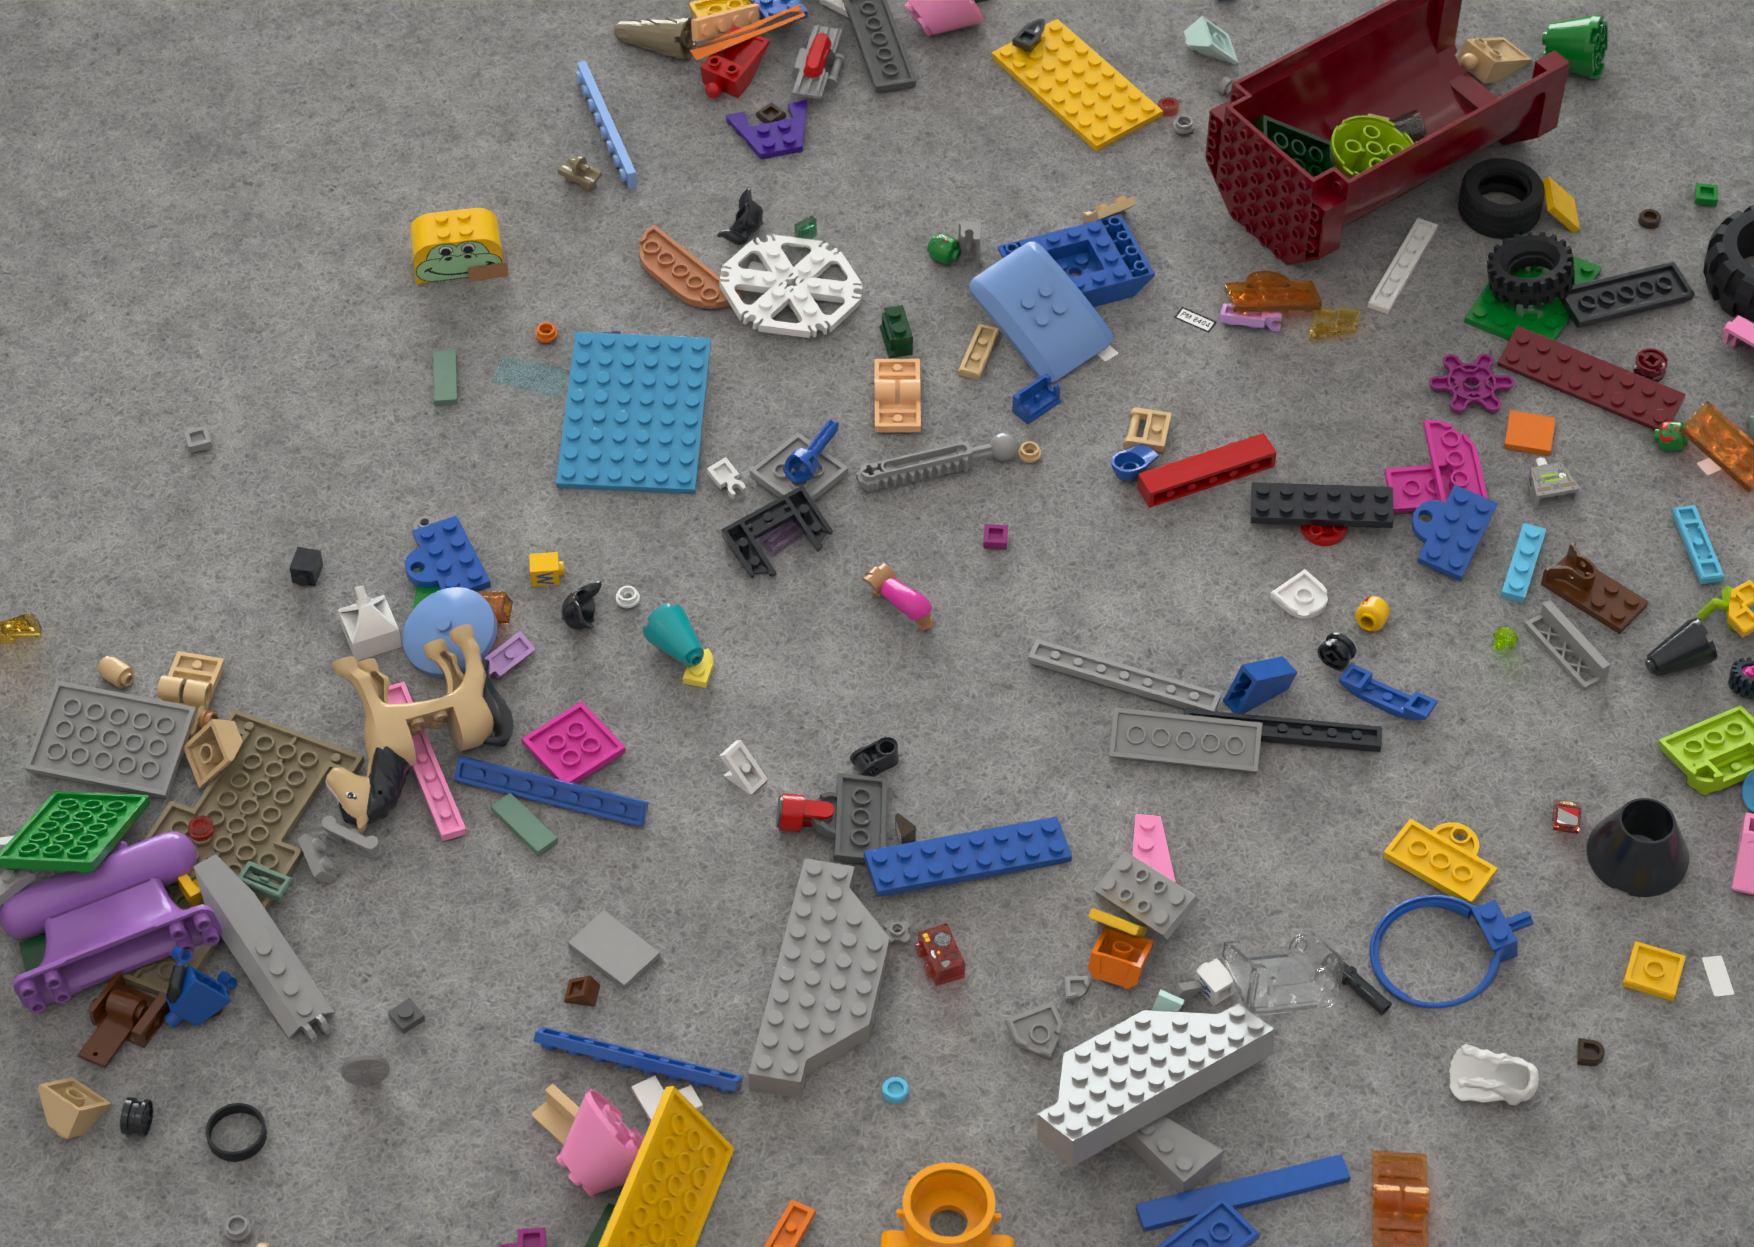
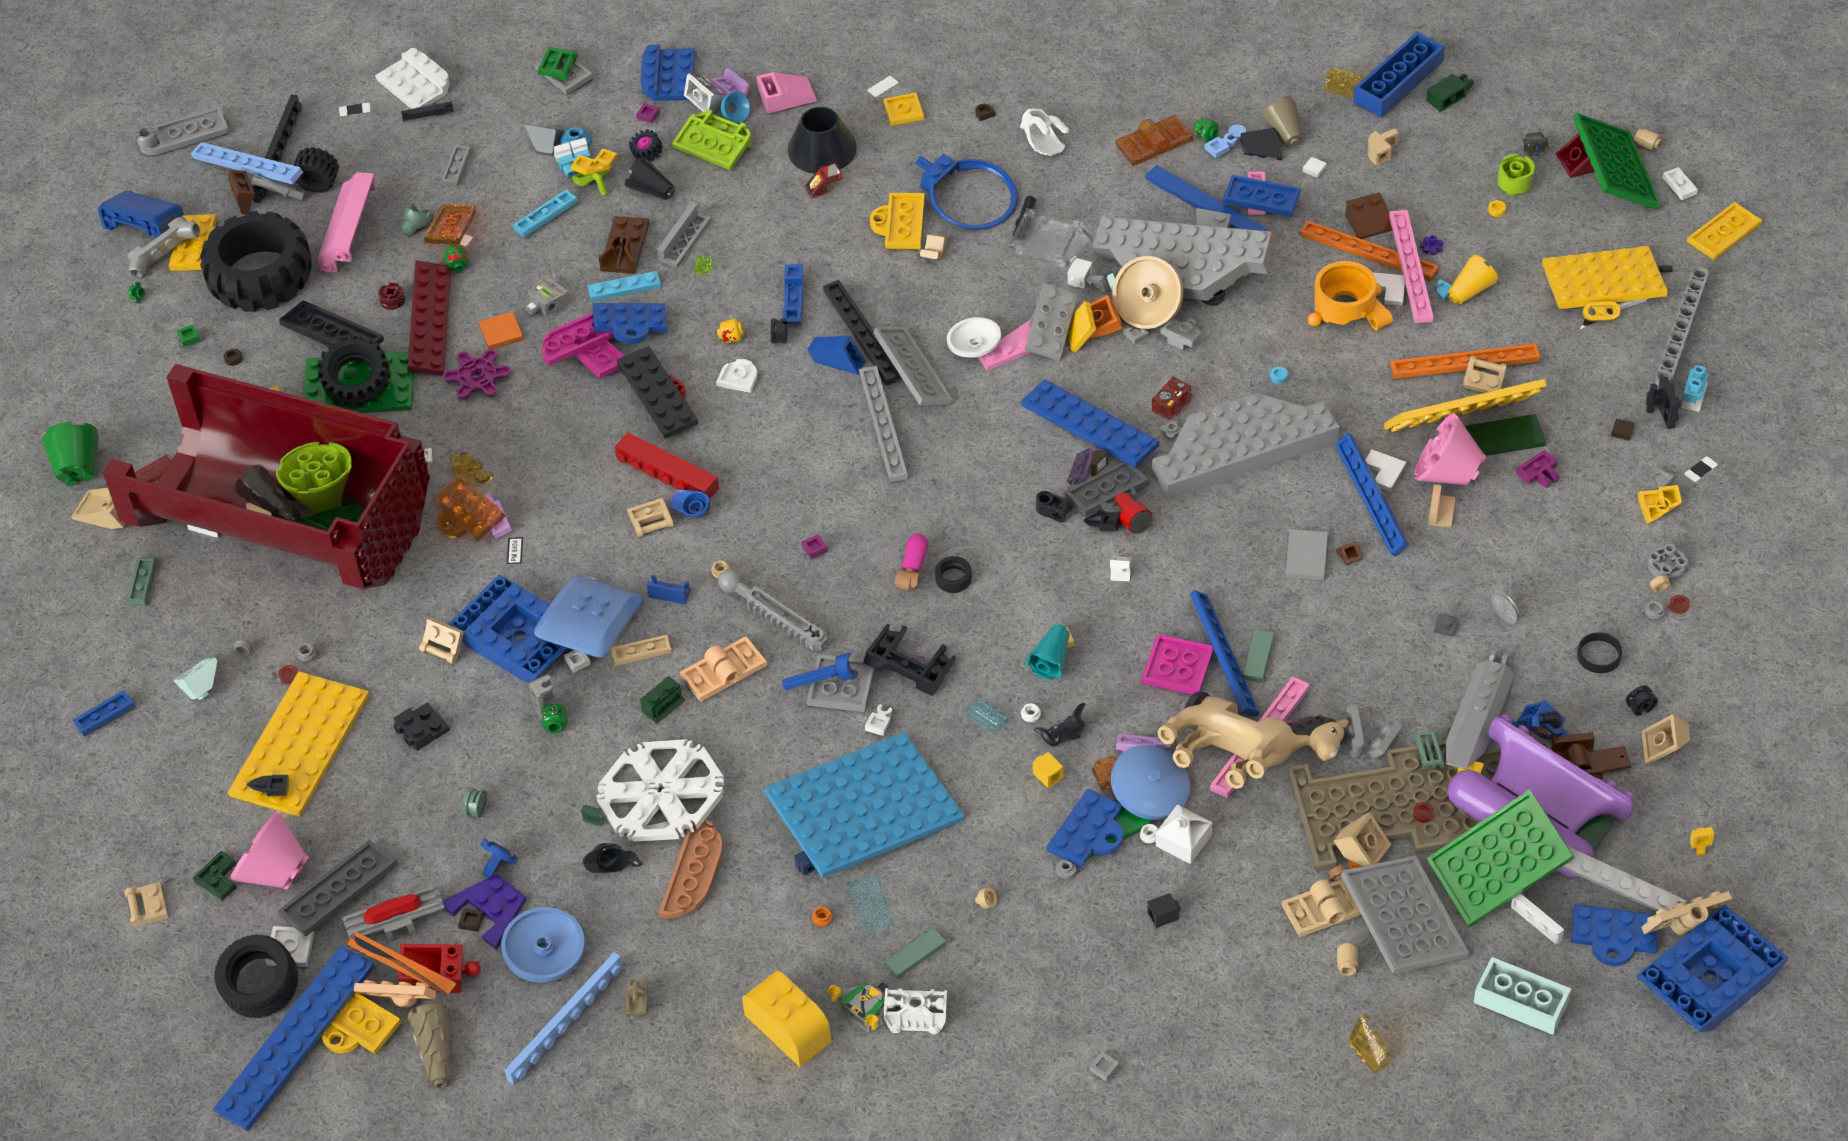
camera: 120 degrees left, 0 degrees up
(391, 338) = (911, 1017): none -> white piece
(400, 607) = (1148, 833): none -> white plate
(422, 311) = (862, 1004): none -> torso
(448, 449) = (986, 898): none -> tan tile
(657, 560) = (988, 713): none -> clear light blue tile
(691, 136) = (543, 944): none -> medium blue dish
(813, 789) = (1104, 521): none -> black plate
(817, 146) = (498, 853): none -> blue tile
(861, 641) = (953, 586): none -> black tyre
(893, 156) = (474, 802): none -> sand green wheel
(904, 806) = (1080, 467): none -> clear purple plate
(1022, 164) = (420, 726): none -> black plate
(1110, 1005) = (1147, 292): none -> tan dish
(1181, 813) = (973, 337): none -> white dish
(1376, 873) = (934, 246): none -> tan slope

